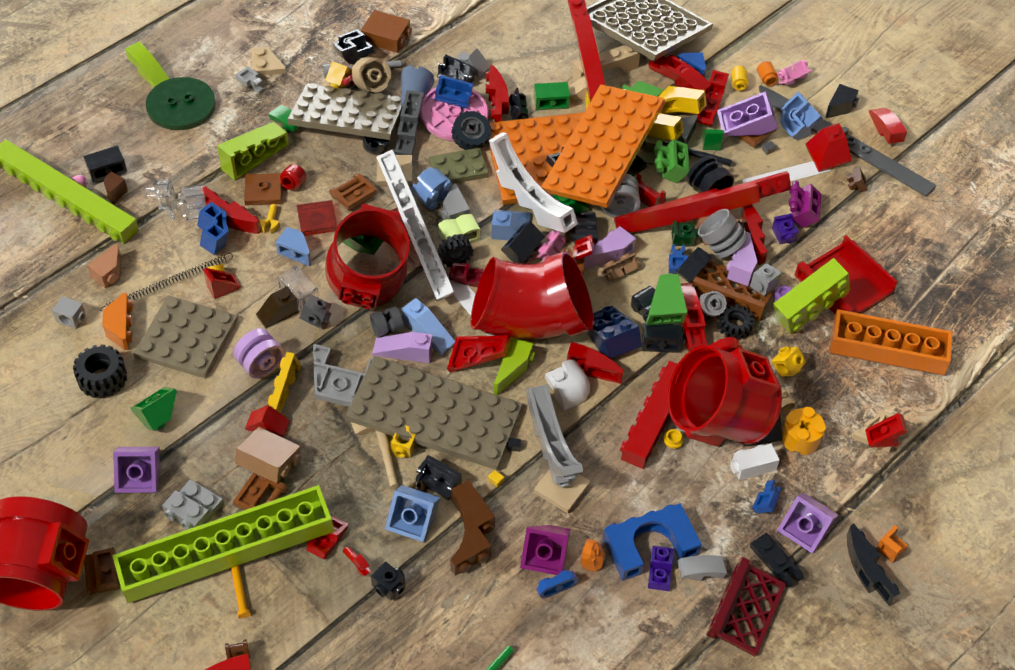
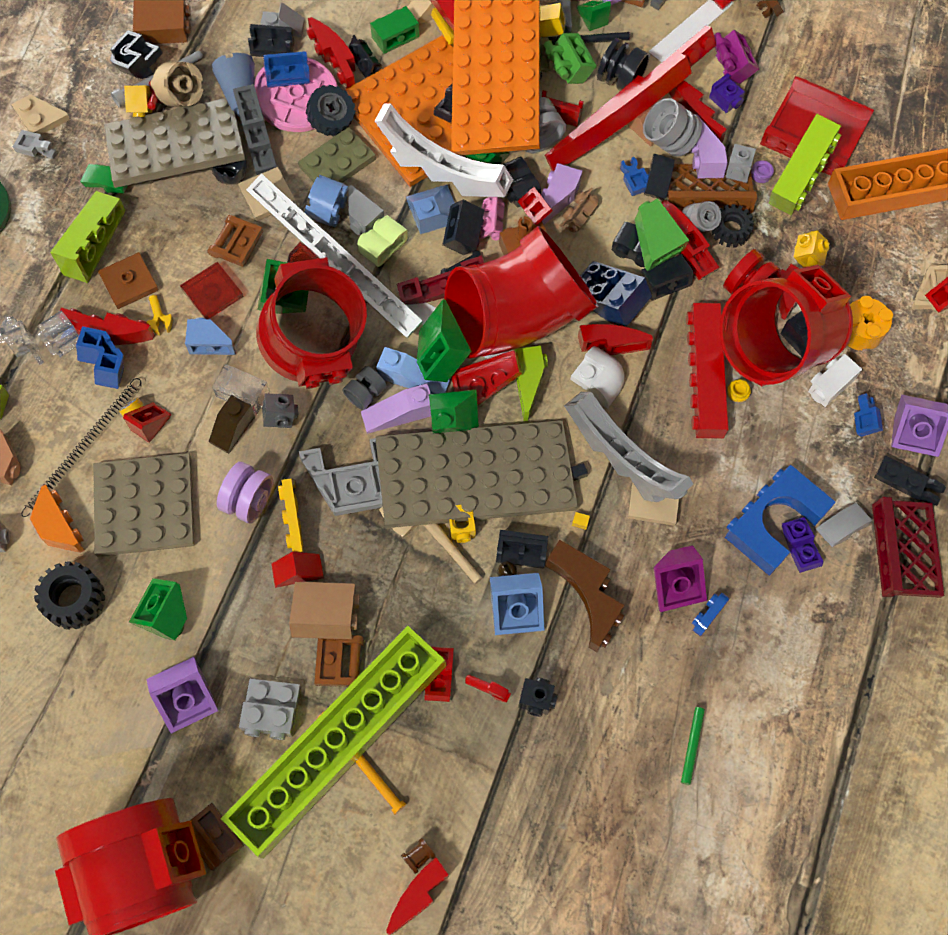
camera: 25 degrees left, 15 degrees up
(293, 177) = (156, 252): red head -> none
(439, 360) = (453, 411): none -> green slope
(455, 250) = (394, 267): black tyre -> none
(457, 315) = (441, 345): none -> green slope
(592, 556) = (729, 564): orange rock -> none
(684, 234) = (625, 143): dark green brick -> none

